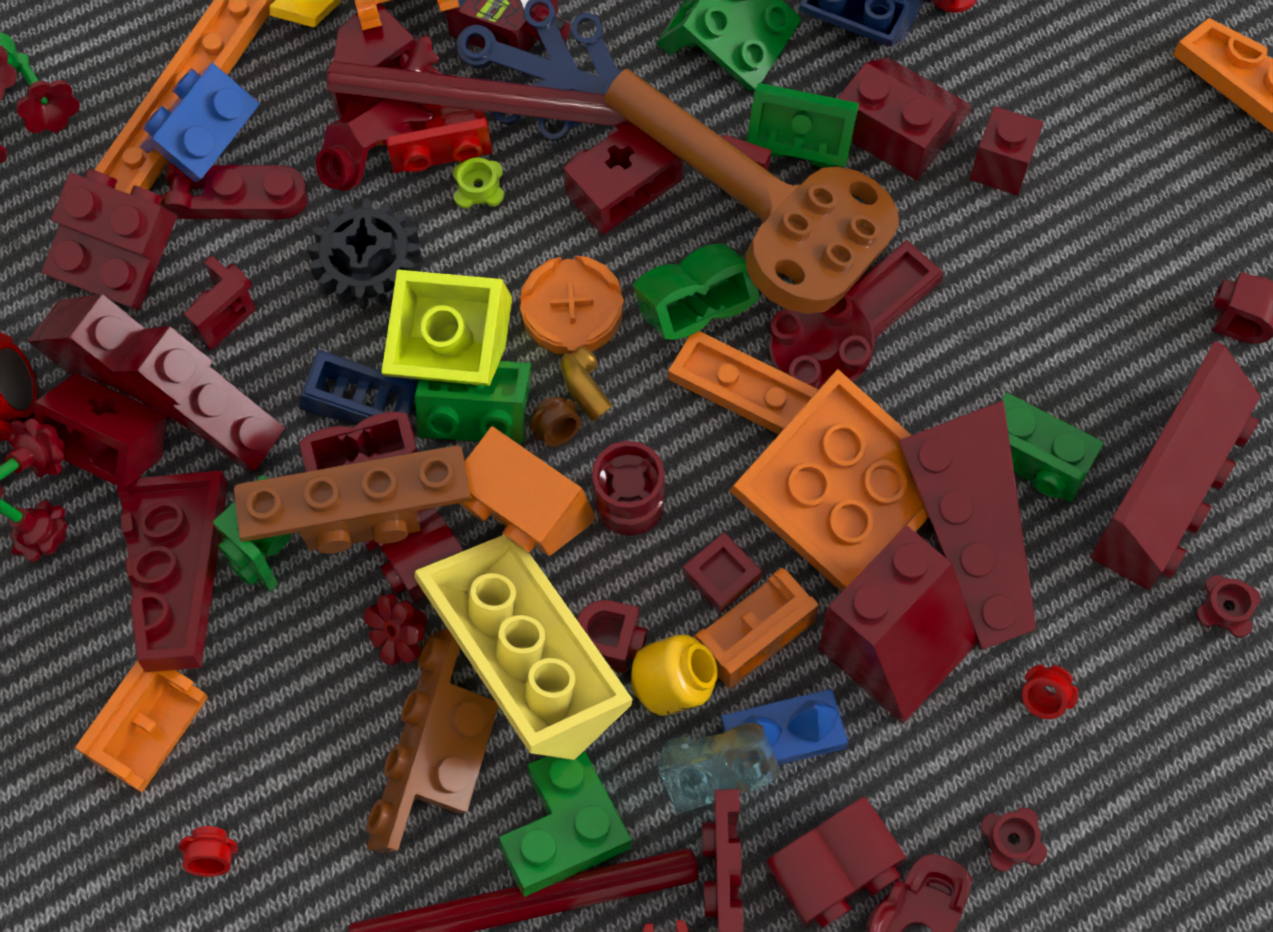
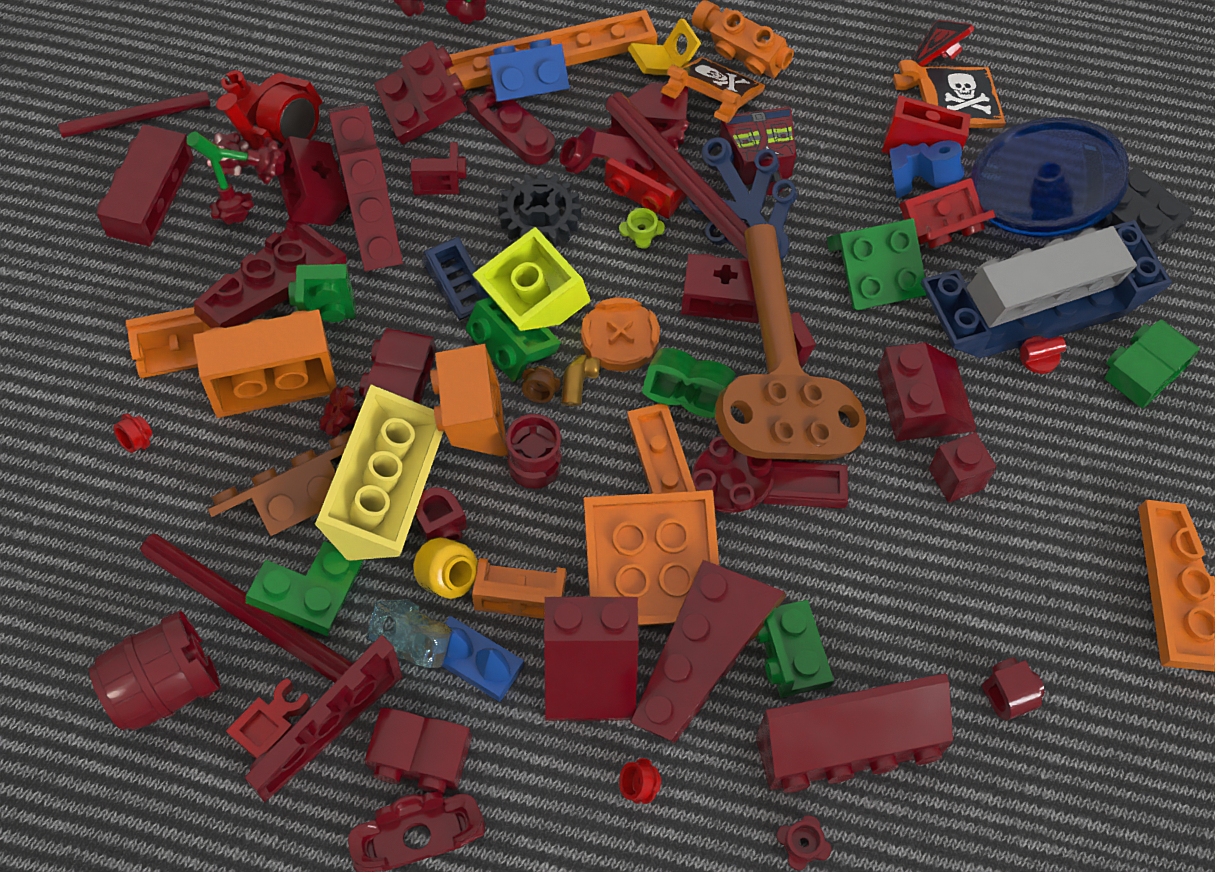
camera: 40 degrees right, 5 degrees down
(276, 648) = (265, 363): none -> orange brick
(354, 500) = (375, 319): dark orange bracket -> none
(371, 439) = (416, 308): dark red brick -> none
(722, 572) = (536, 543): dark red plate -> none
(802, 125) = (850, 347): green bracket -> none
(1023, 825) = (530, 826): dark red plate -> none

